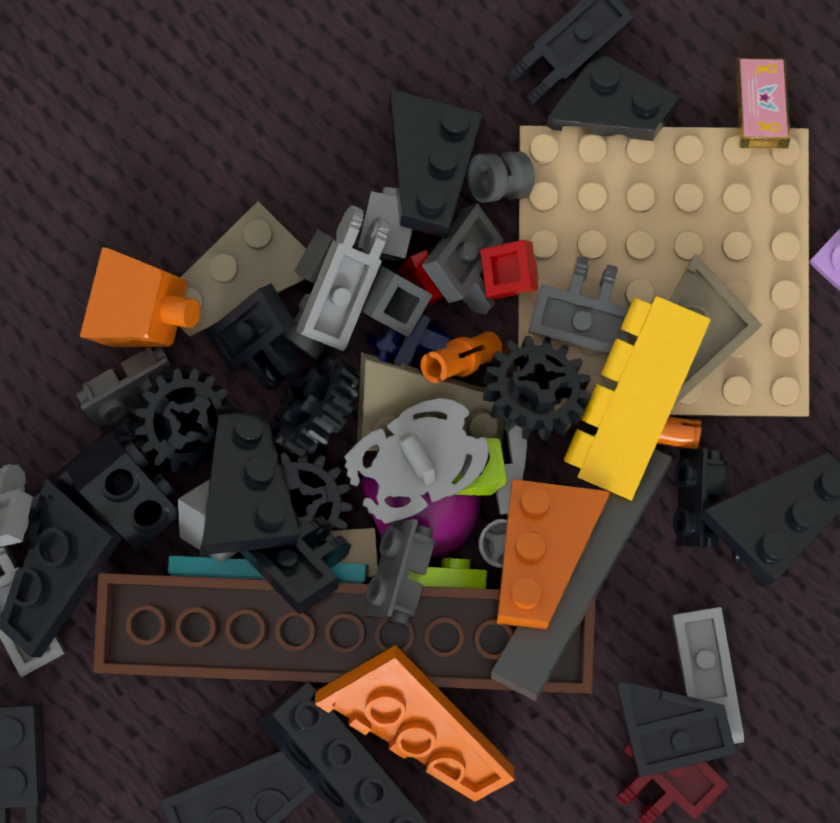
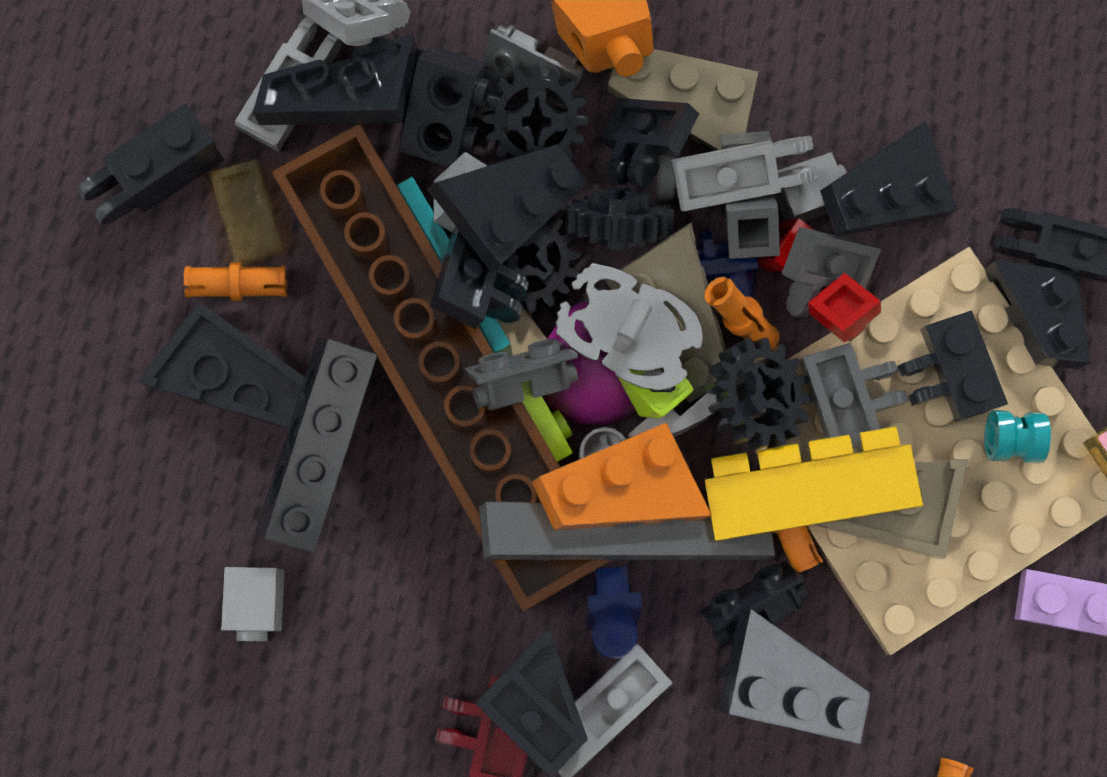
camera: 50 degrees right, 5 degrees down
(103, 712) = (247, 212): none -> clear yellow tile
(160, 758) = (235, 281): none -> orange pin
(418, 722) = (403, 471): orange wing -> none
(500, 176) = (915, 252): dark grey wheel -> none
(617, 204) = (961, 366): none -> black hinge
(638, 620) = (613, 613): none -> clear blue hips
(702, 200) = (1016, 436): none -> teal wheel

